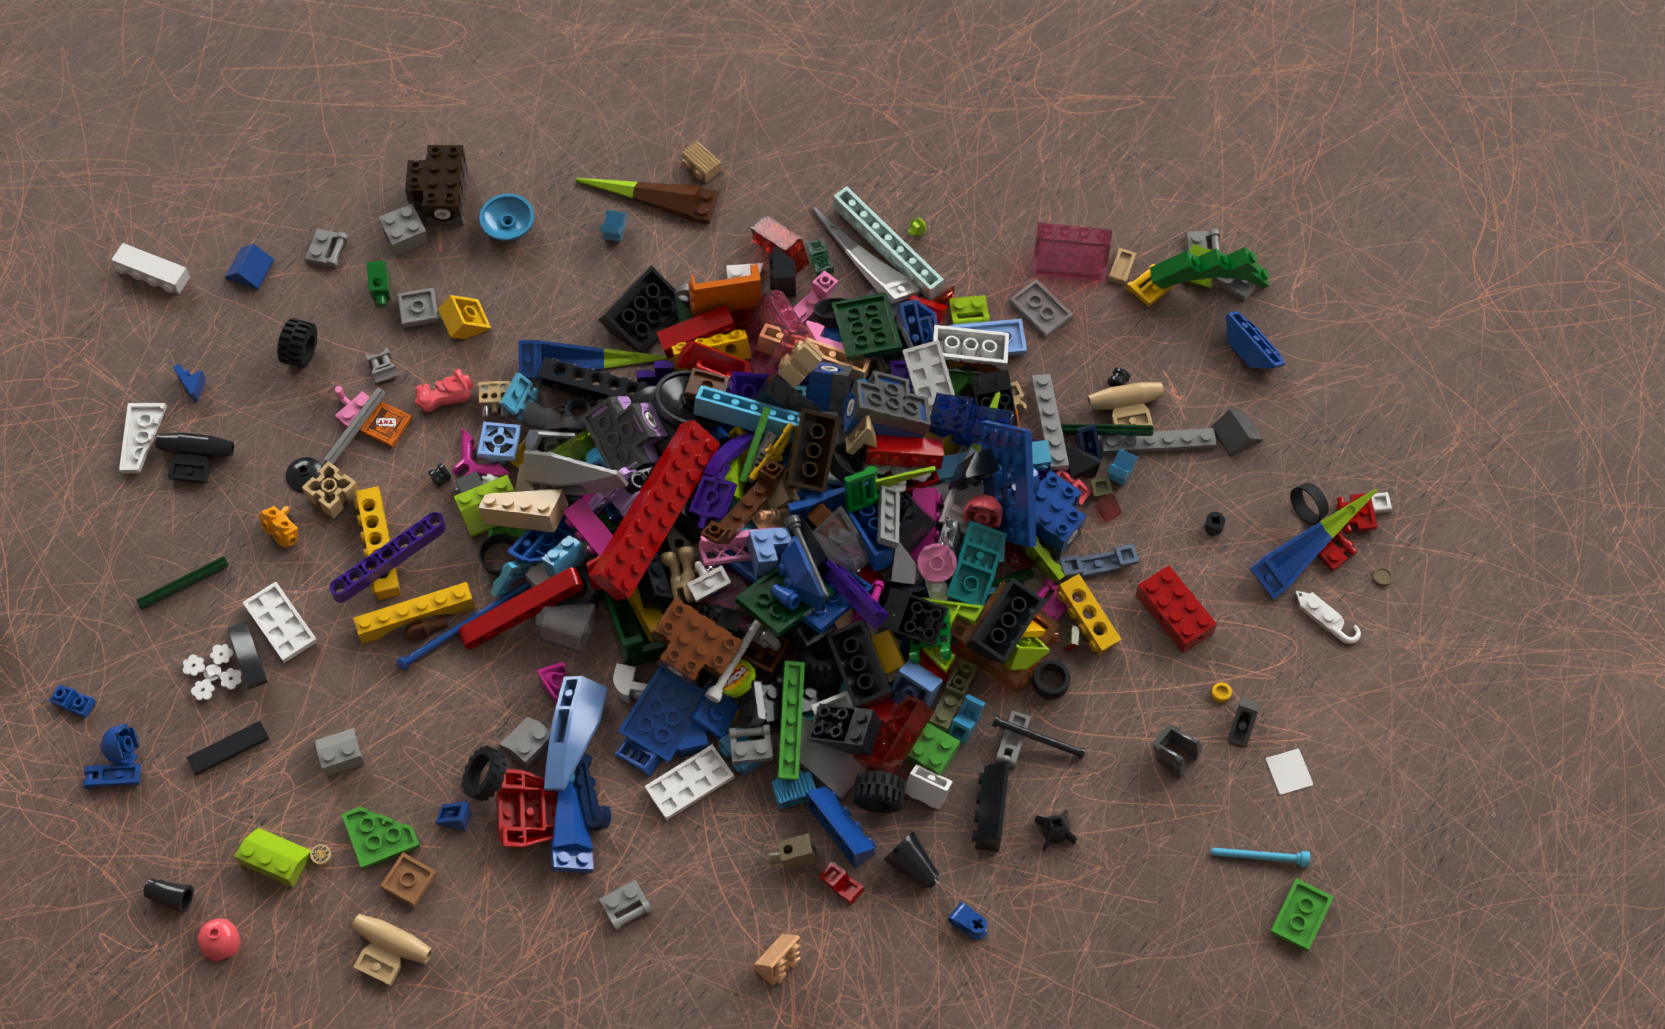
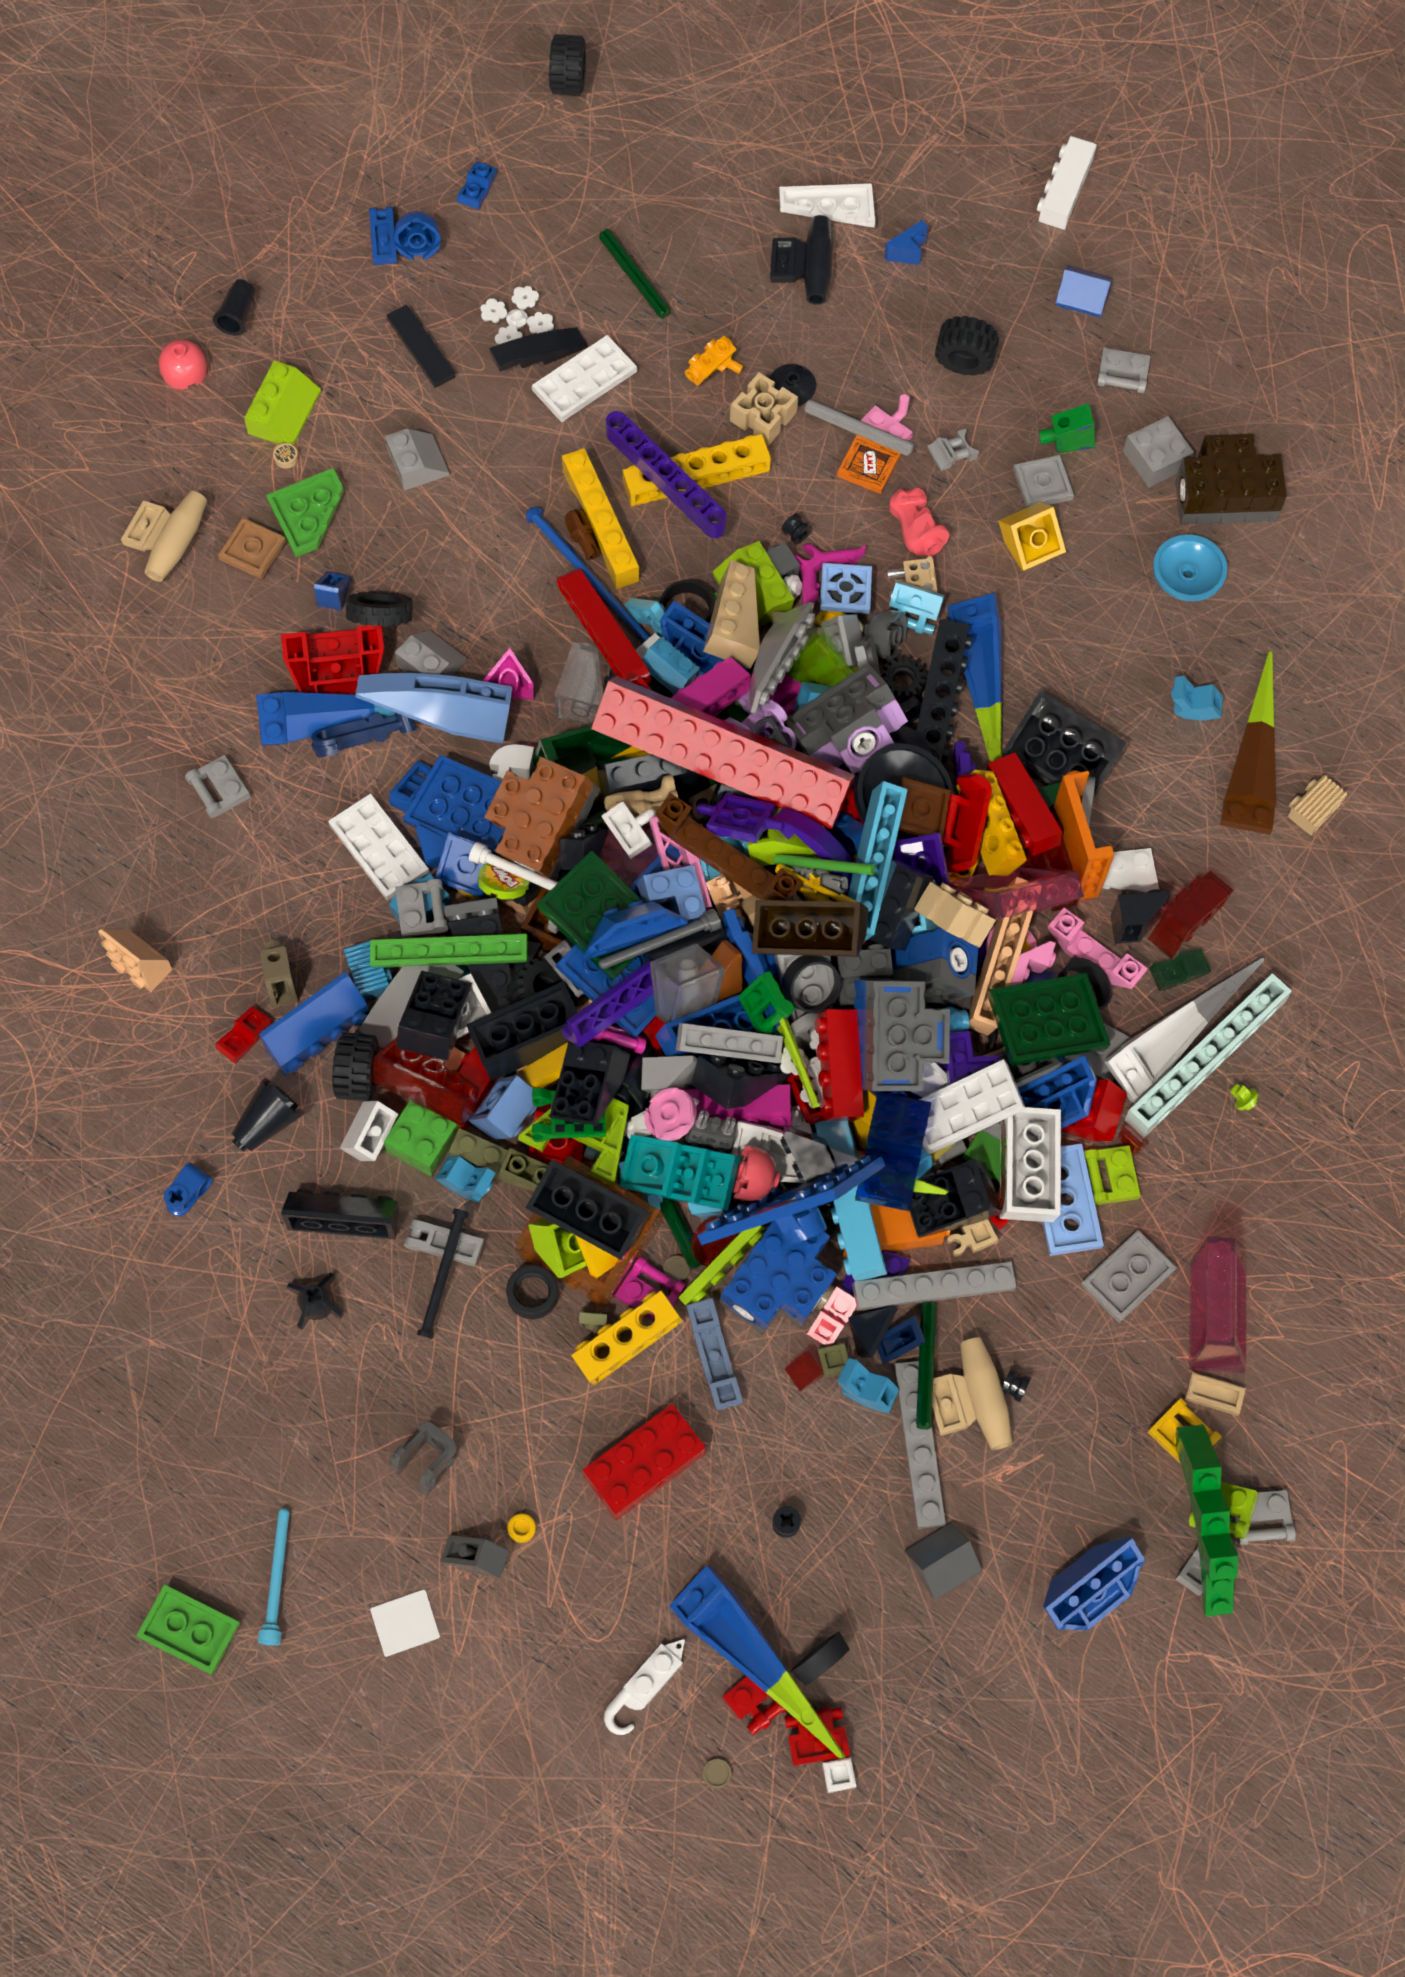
camera: 85 degrees right, 5 degrees up
(788, 598) = (591, 911): blue cone -> none
(861, 434) = (848, 1002): tan slope -> none

